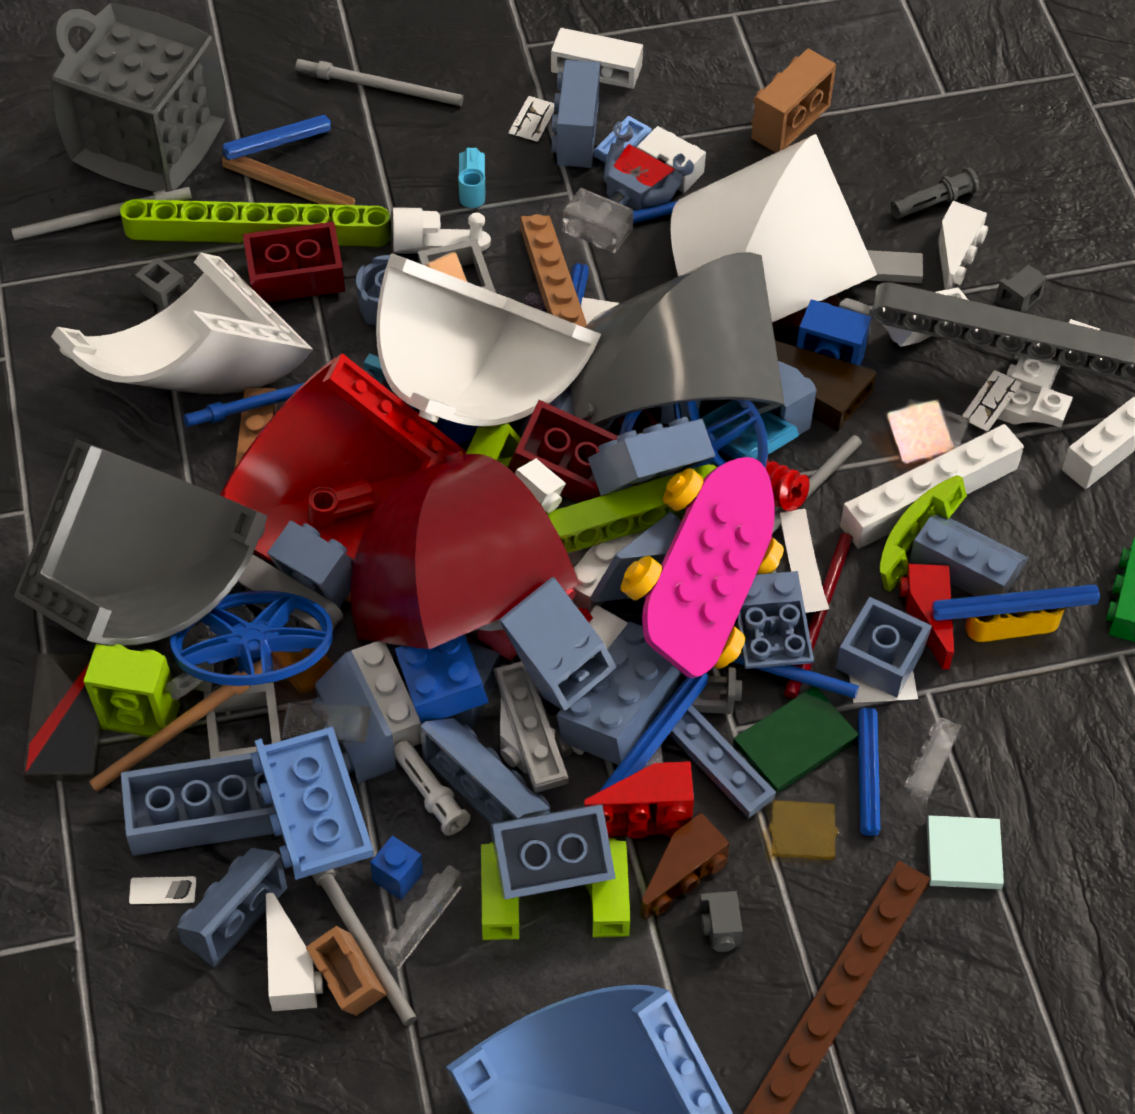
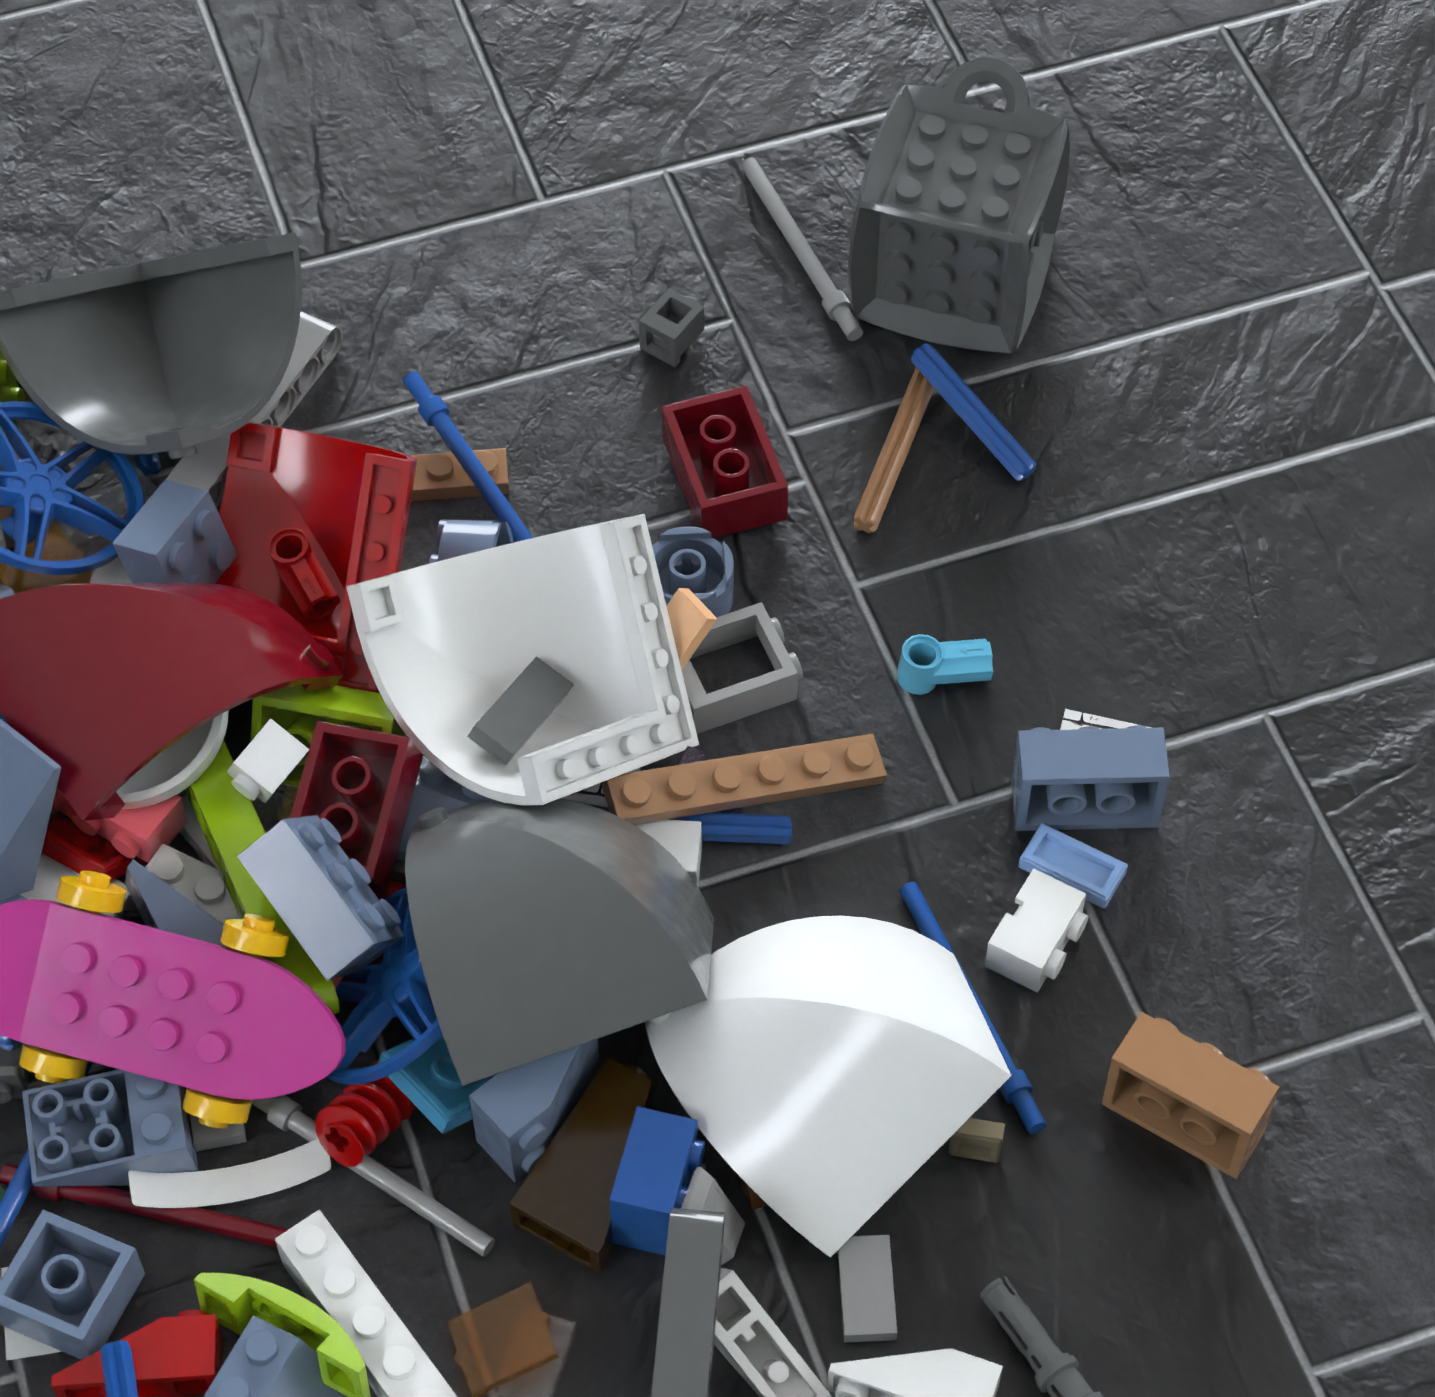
camera: 85 degrees right, 0 degrees up
(203, 343) = (542, 359): white panel -> none
(230, 220) = (805, 420): lime beam -> none
(326, 71) = (1133, 458): light grey bar -> none
(419, 230) = (812, 602): white piece -> none
(496, 368) = (520, 710): none -> dark grey tile
(597, 220) = (882, 838): clear brick -> none
(618, 59) = (1245, 805): white brick -> none
(638, 178) = (982, 878): sand blue torso -> none

